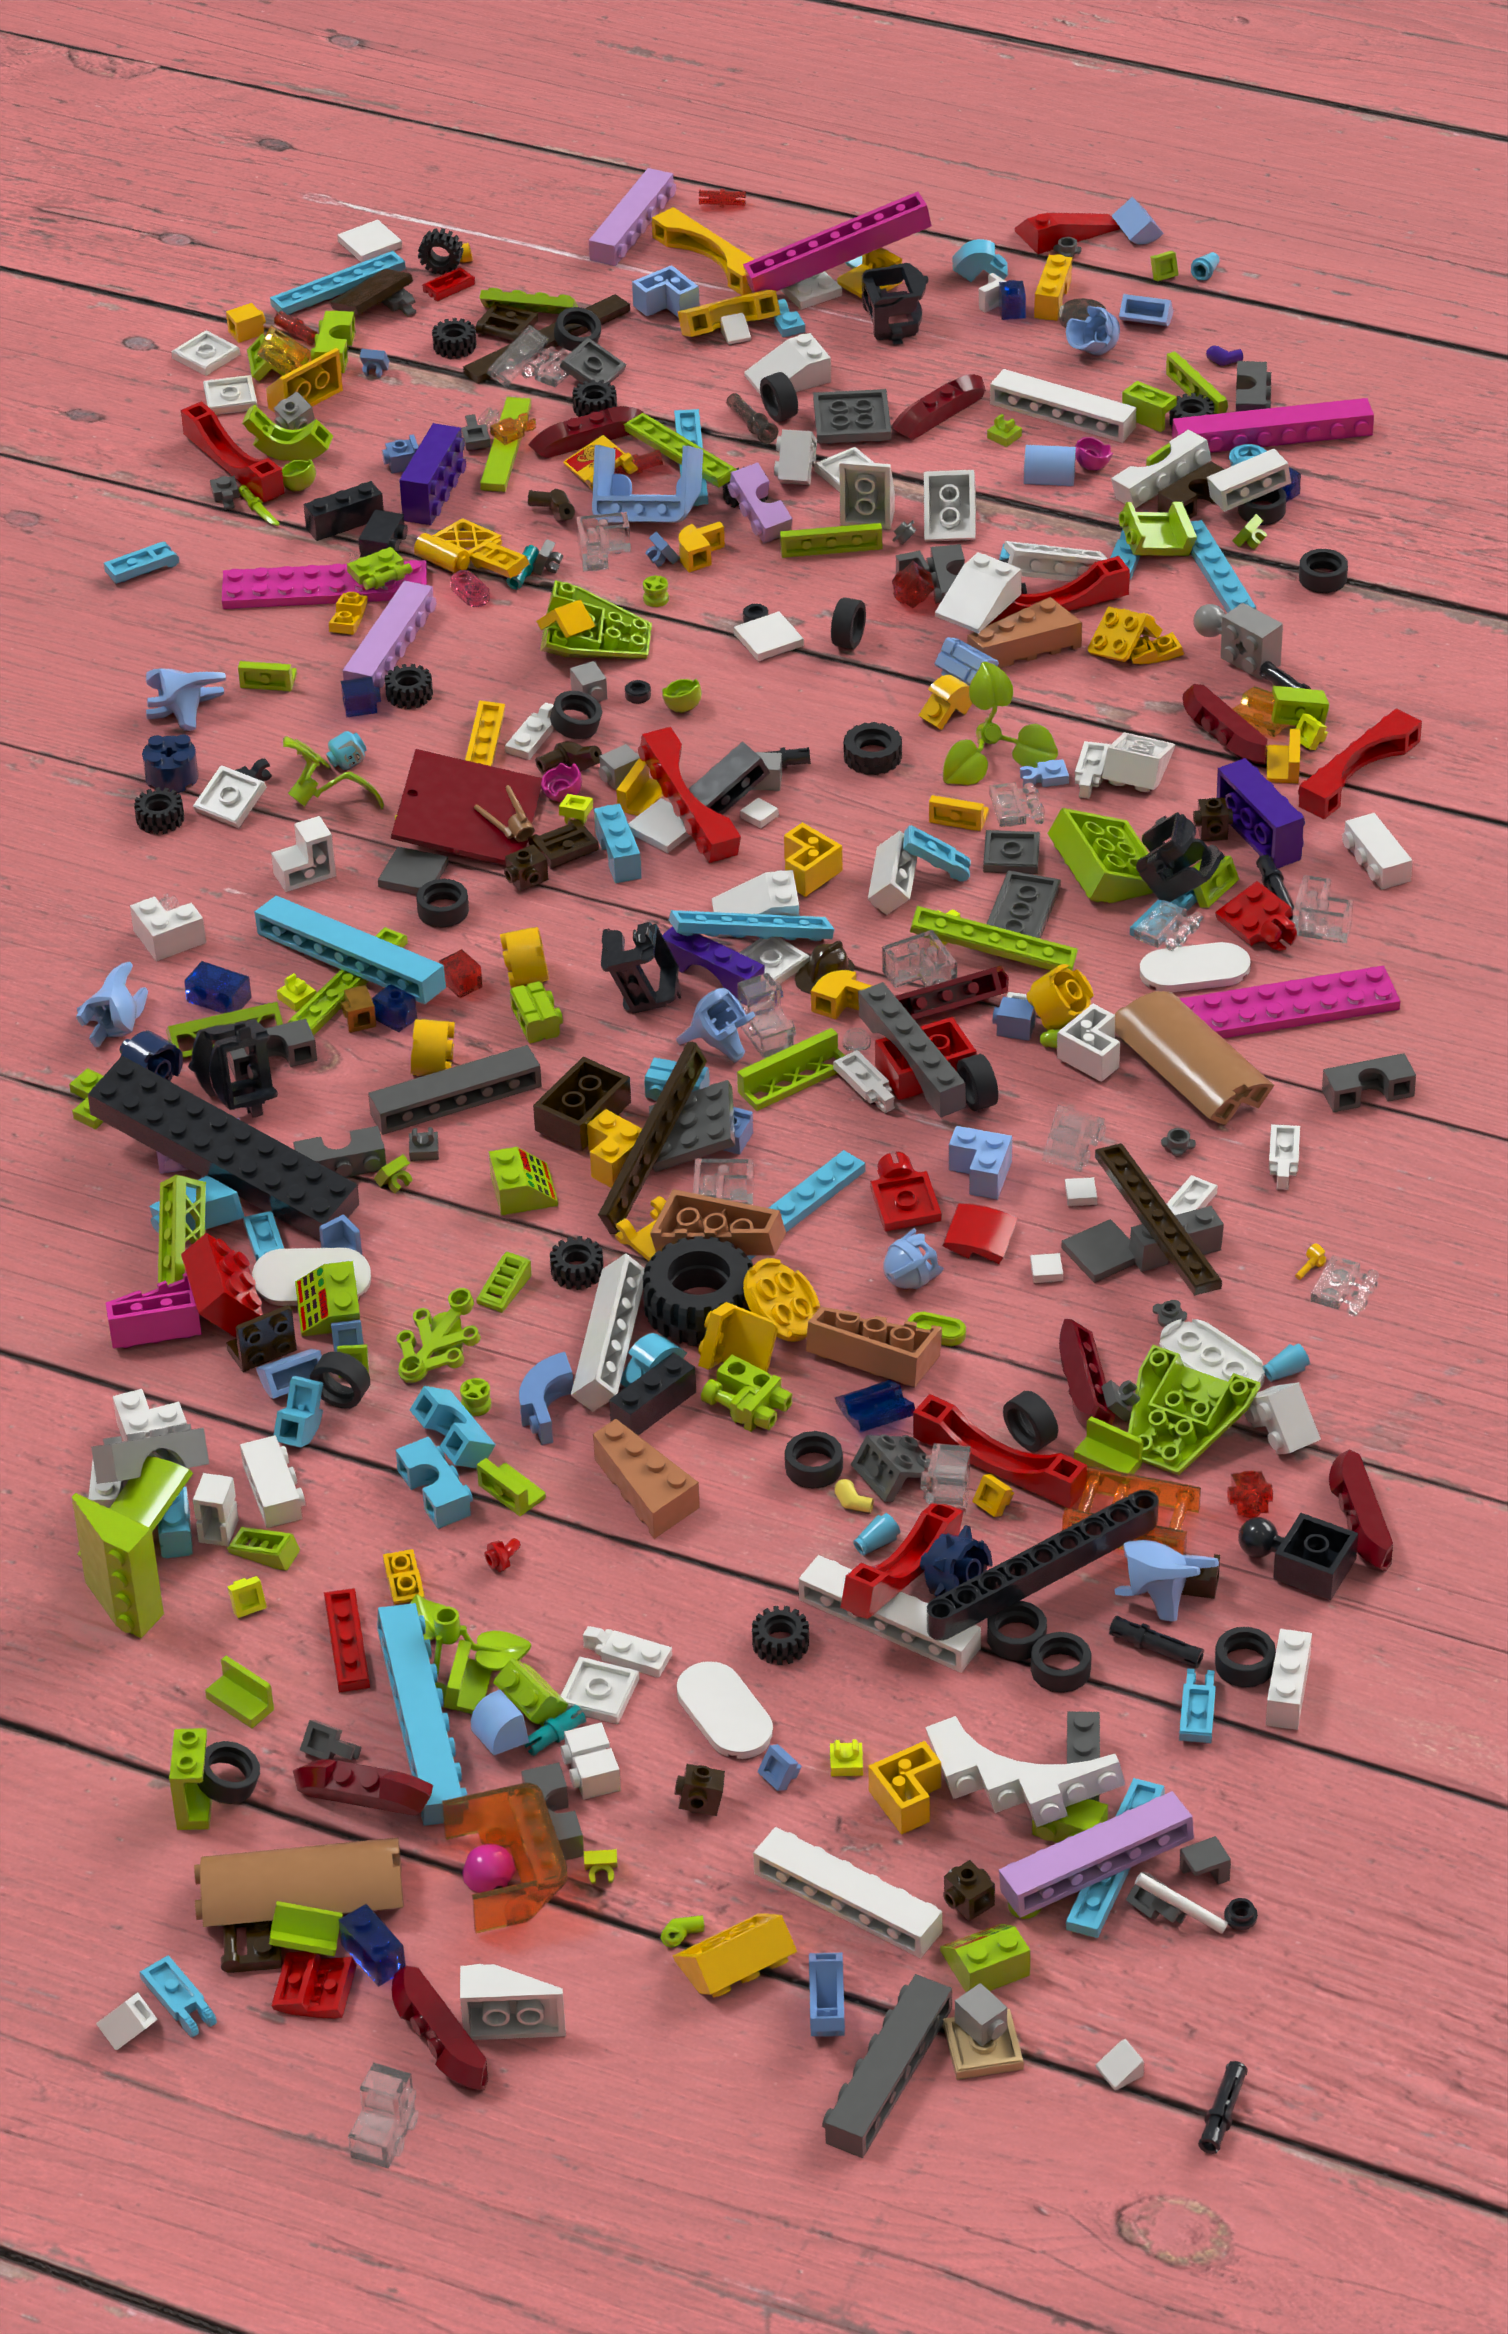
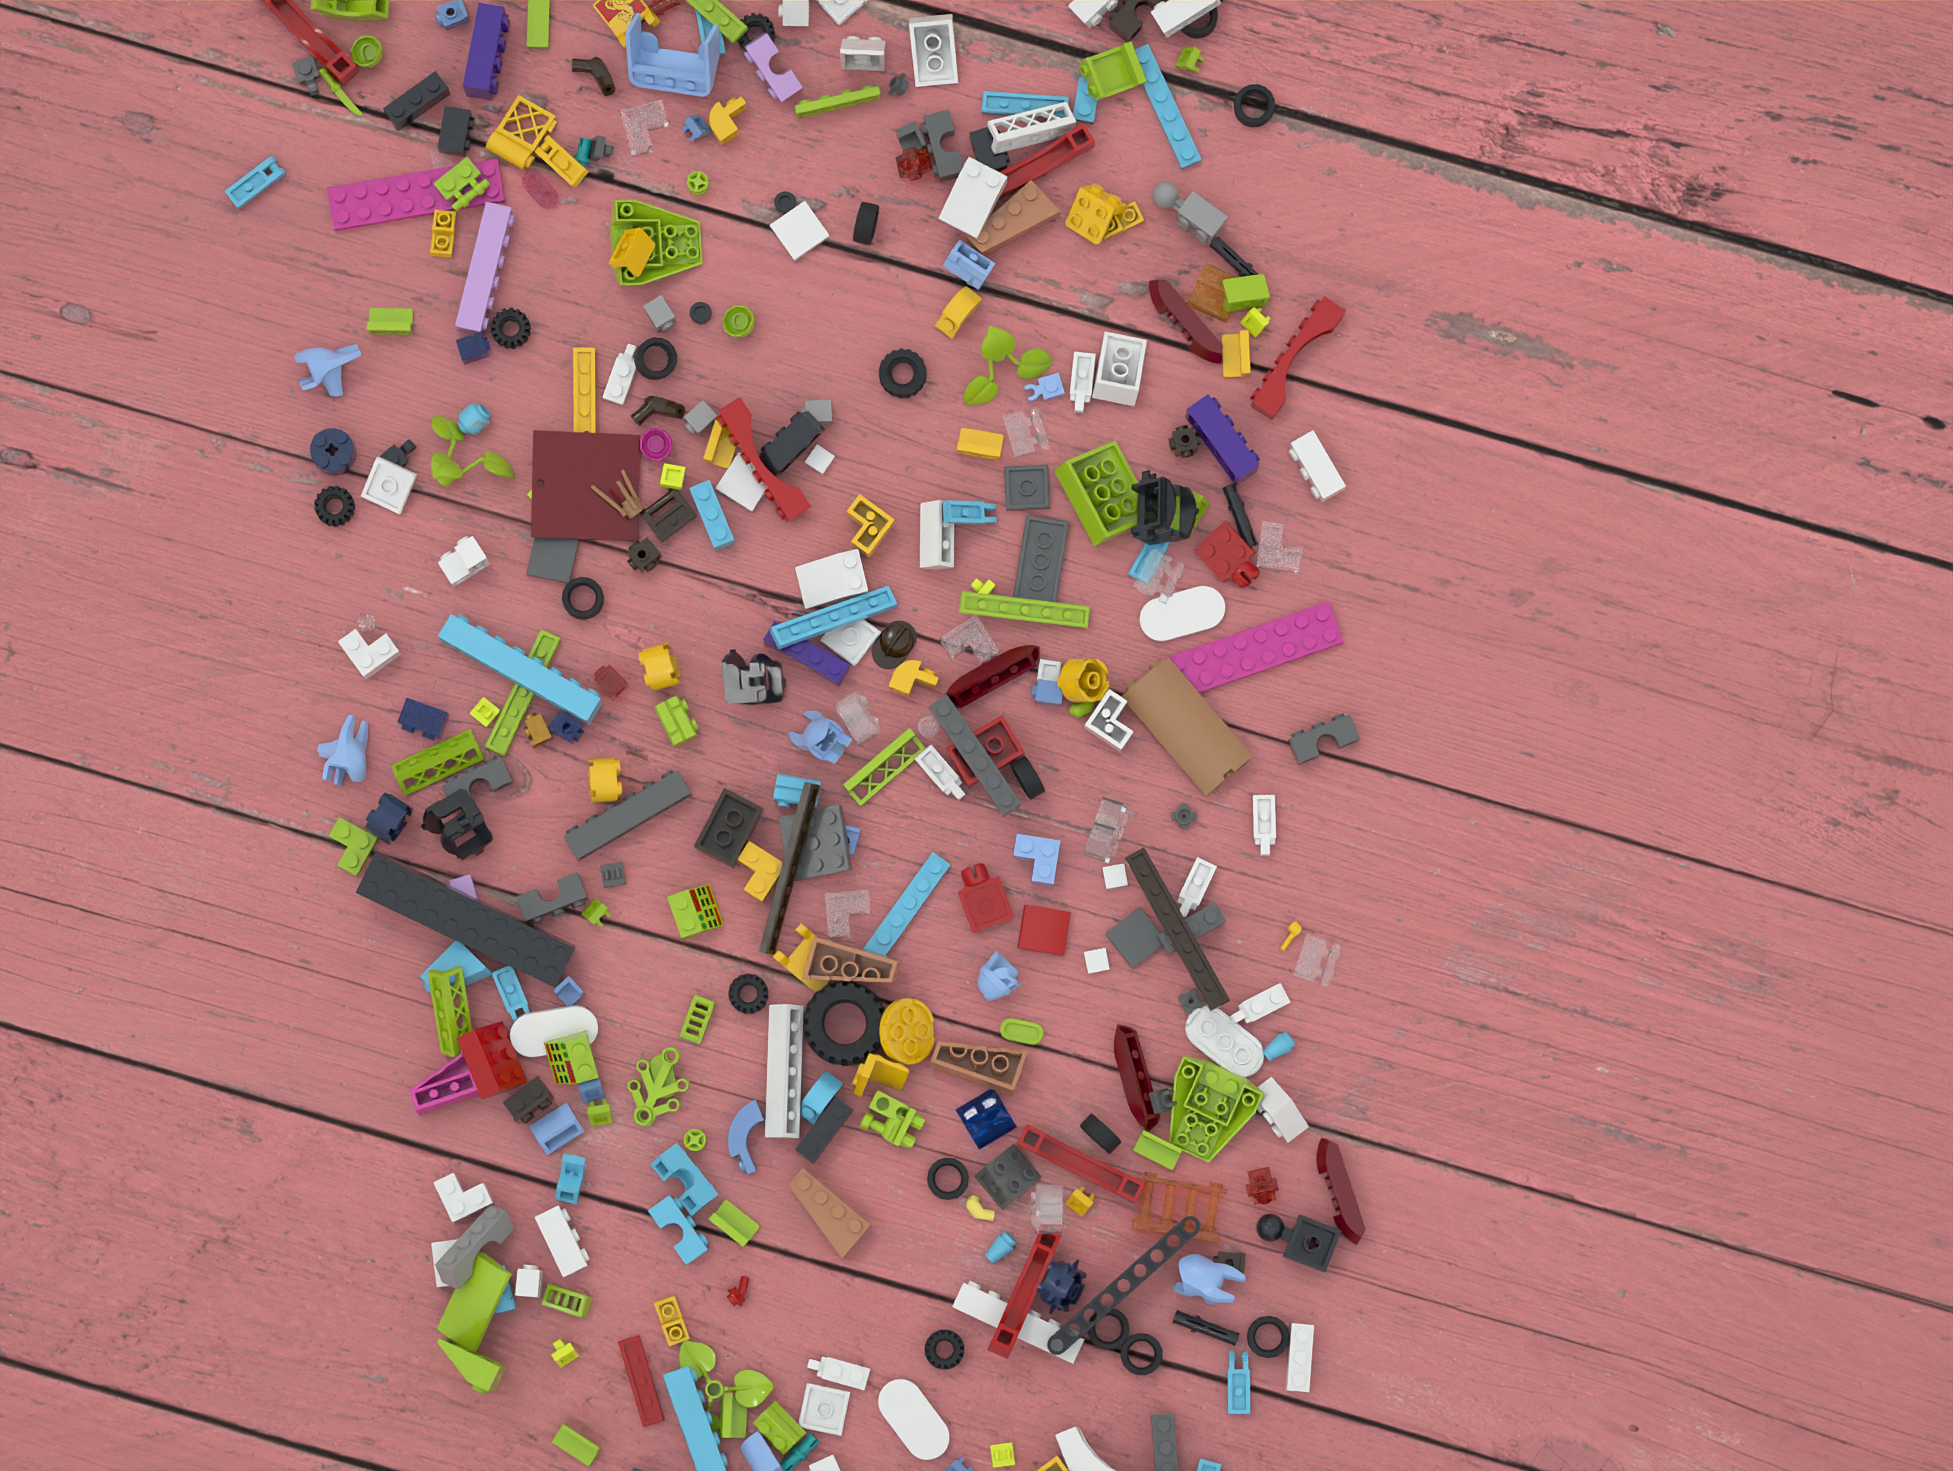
camera: 10 degrees left, 40 degrees up
(348, 1369) = (595, 1143): black tyre -> none
(794, 756) = (832, 391): black pin -> none
(1263, 1322) = (1261, 1004): none -> white hinge

